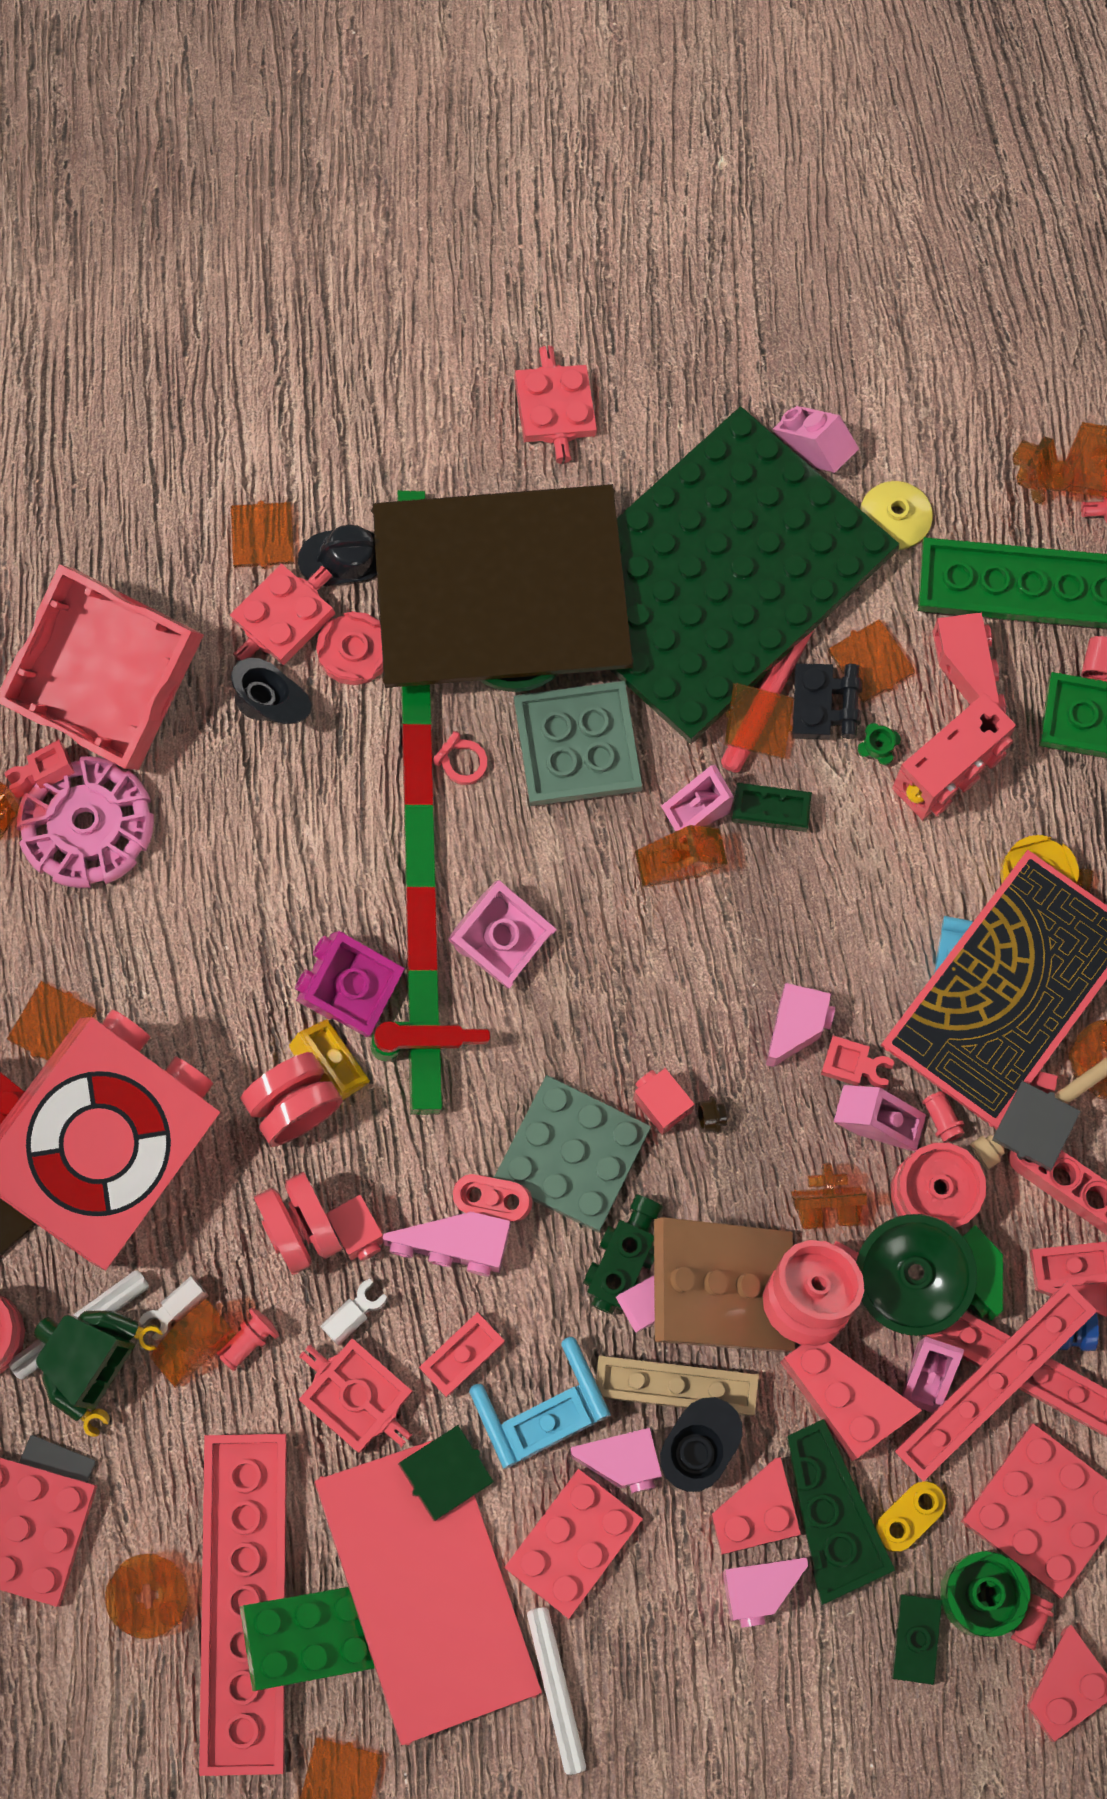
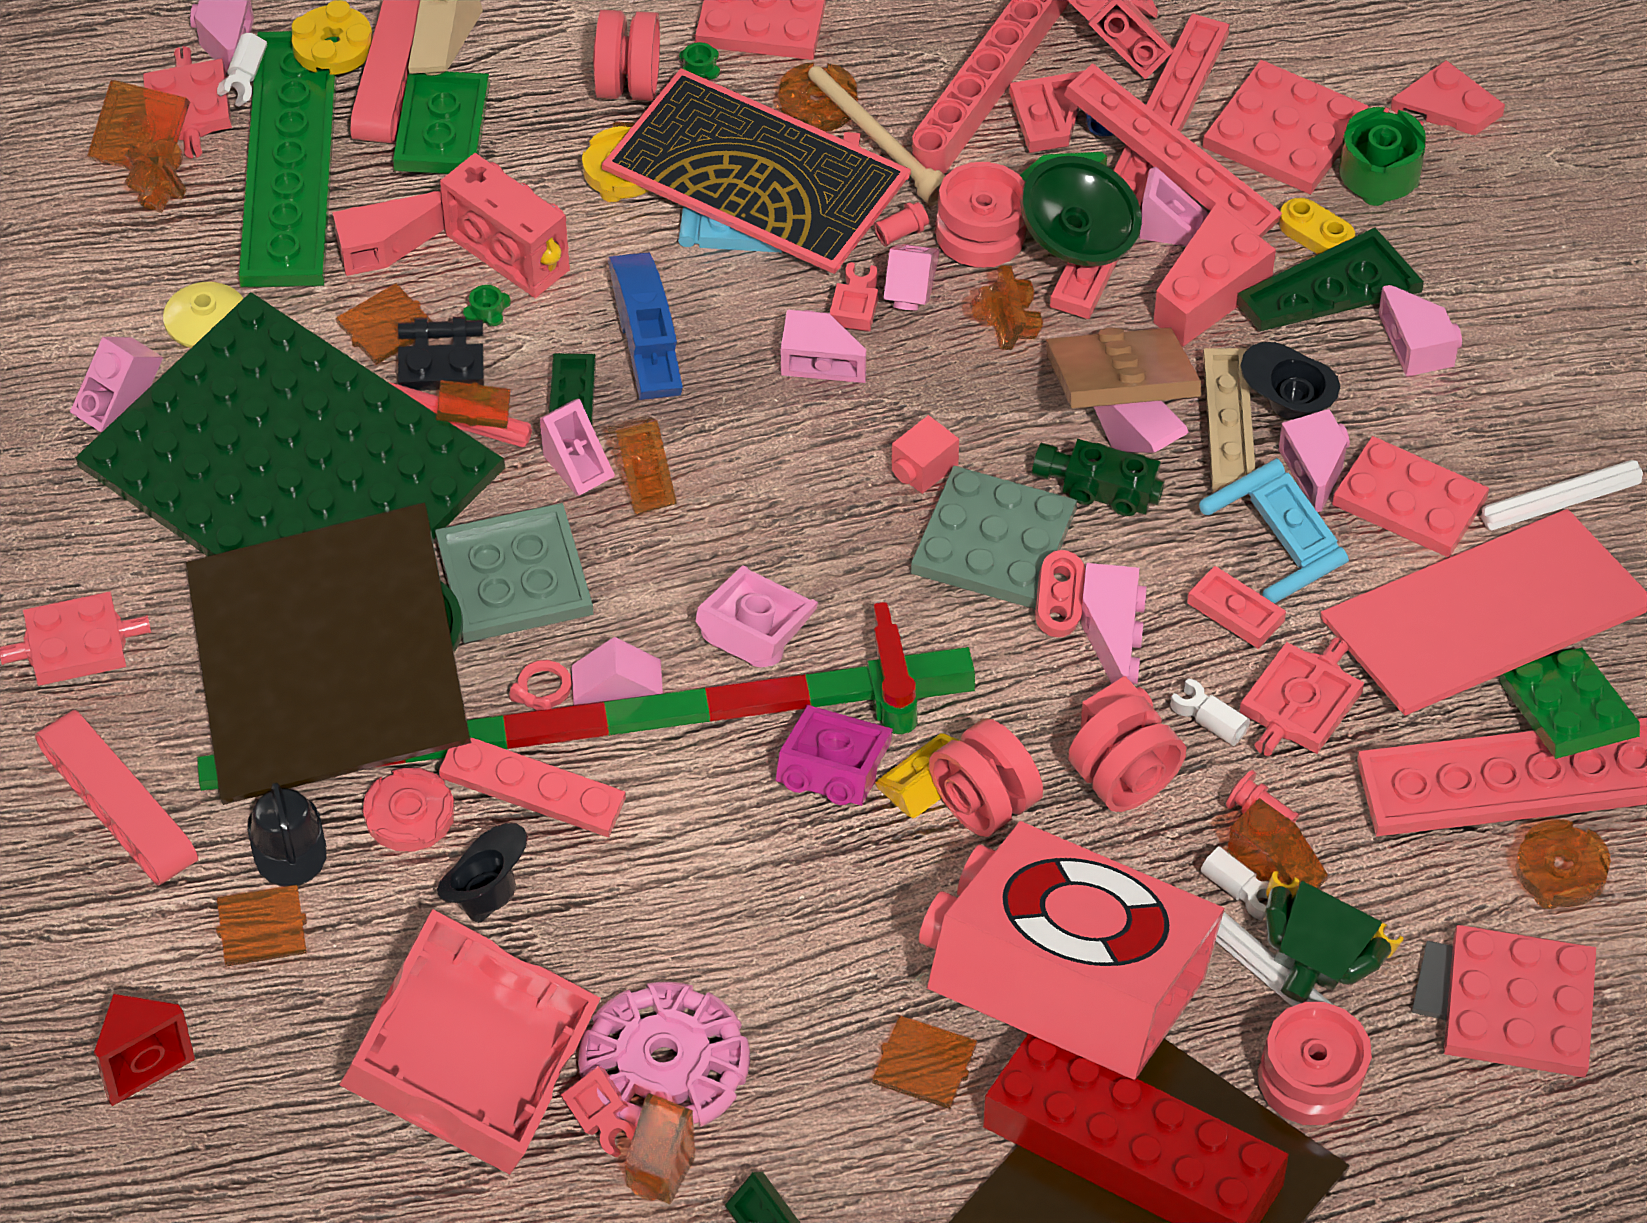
camera: 95 degrees left, 20 degrees down
(147, 429) = (140, 1045): none -> red slope
(282, 614) = (370, 882): coral plate -> none
(354, 744) = (534, 785): none -> coral plate
(390, 428) = (116, 797): none -> coral beam
(445, 1472) = (1365, 607): dark green piece -> none
(458, 820) = (615, 673): none -> bright pink slope
(711, 1115) = (935, 408): dark brown plate -> none
(757, 1512) = (1344, 346): coral wing -> none
(813, 1292) = (1118, 284): coral wheel -> none
(838, 871) = (647, 325): none -> blue slope
(916, 1639) = (1435, 215): dark green plate -> none
(1036, 1125) = (905, 134): dark grey piece -> none

